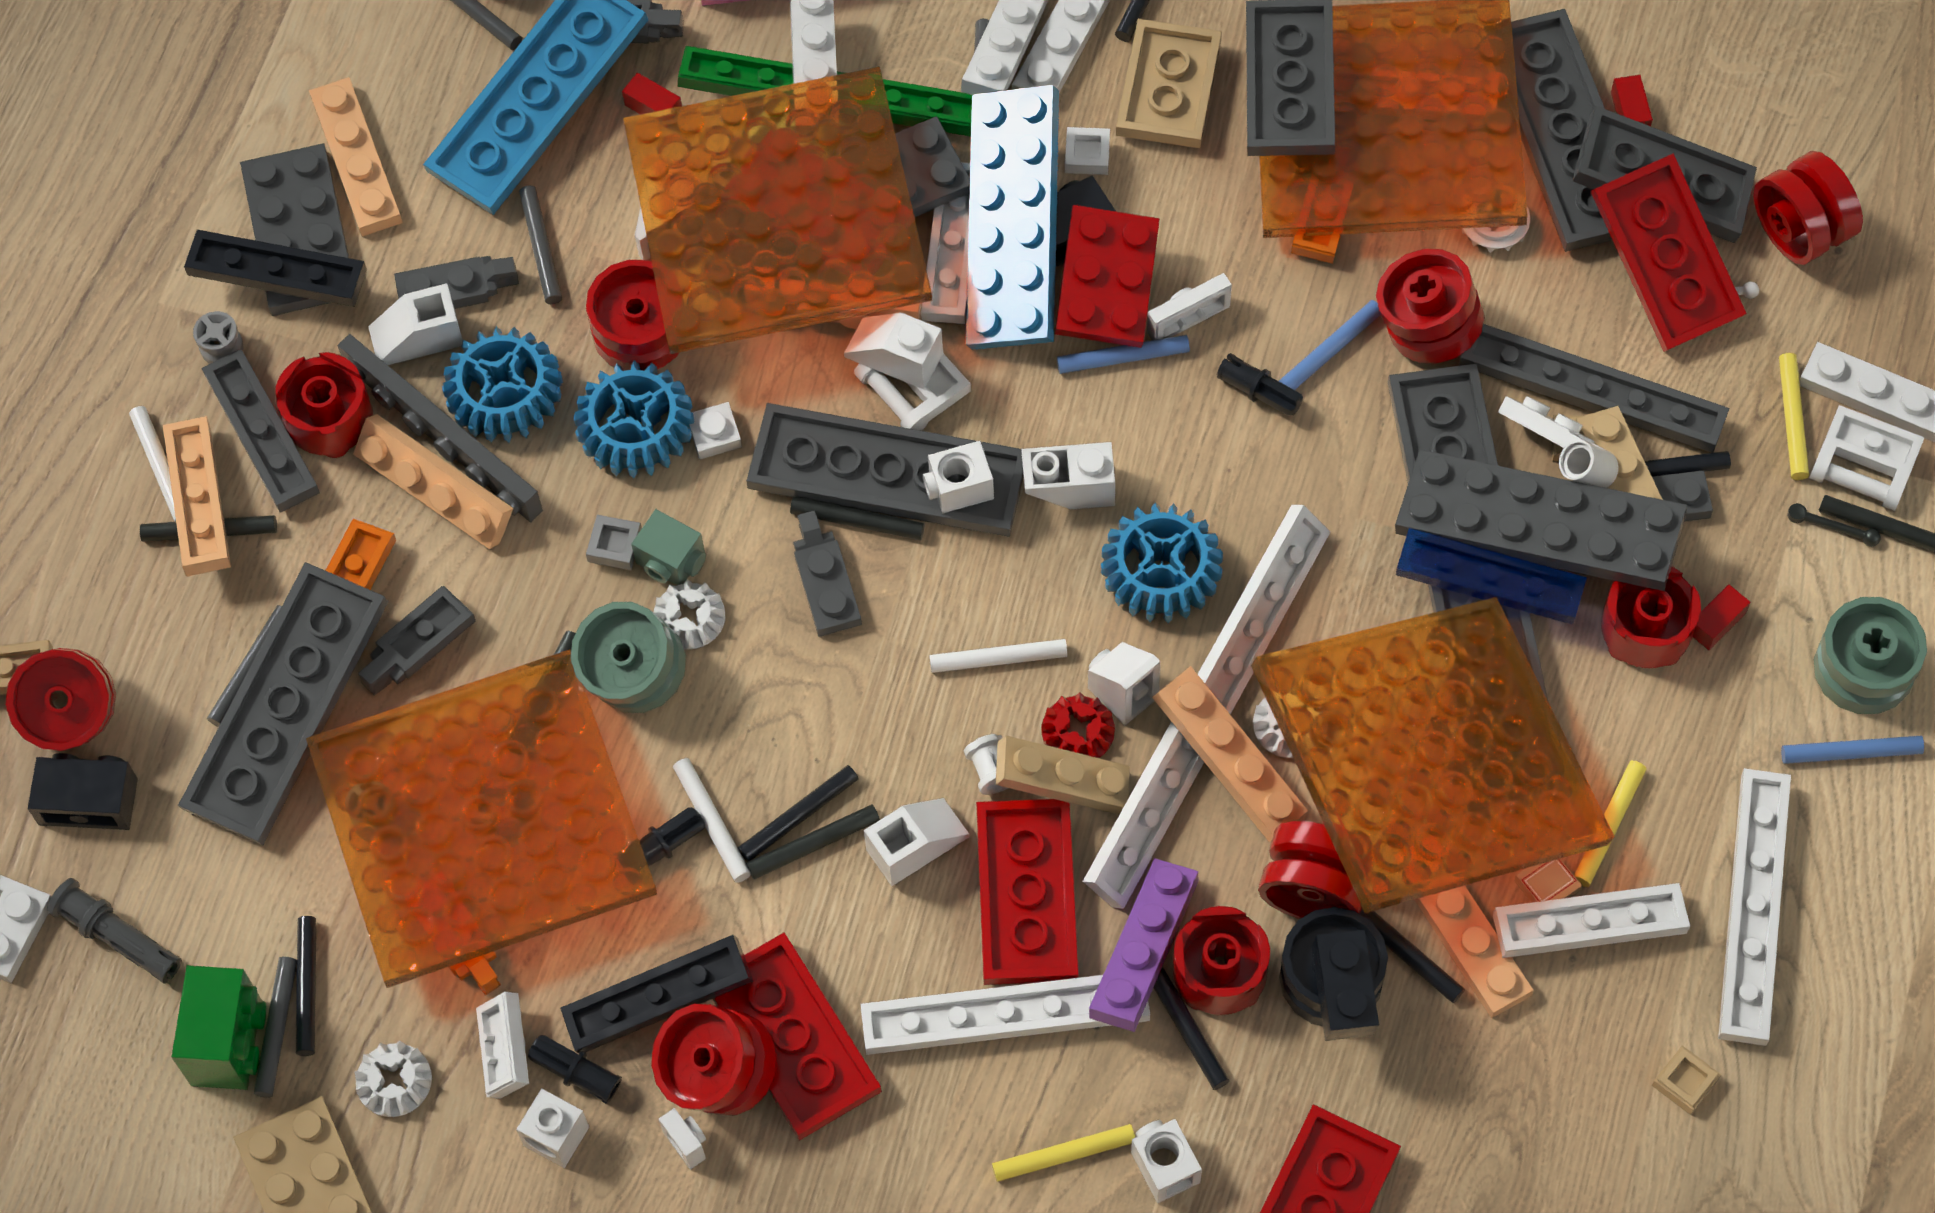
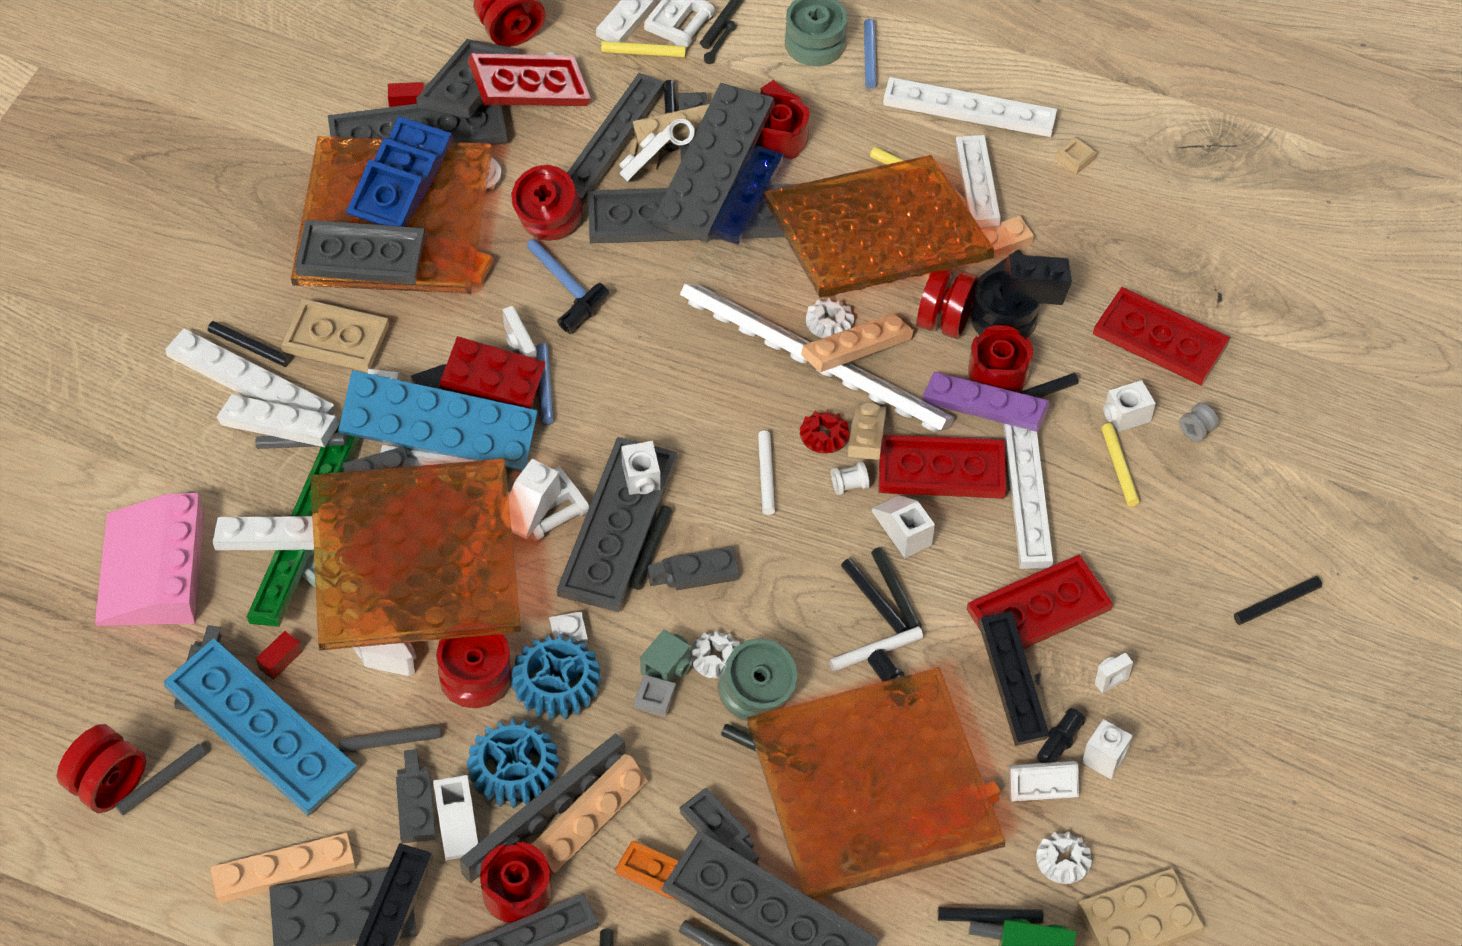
camera: 90 degrees left, 10 degrees down
(713, 1059) = (1066, 621): red wheel -> none
(1071, 475) = (641, 406): white slope -> none
(1124, 680) = (799, 392): white slope -> none
(1145, 537) = (709, 380): dark azure gear -> none
(1436, 102) = (400, 173): none -> blue slope

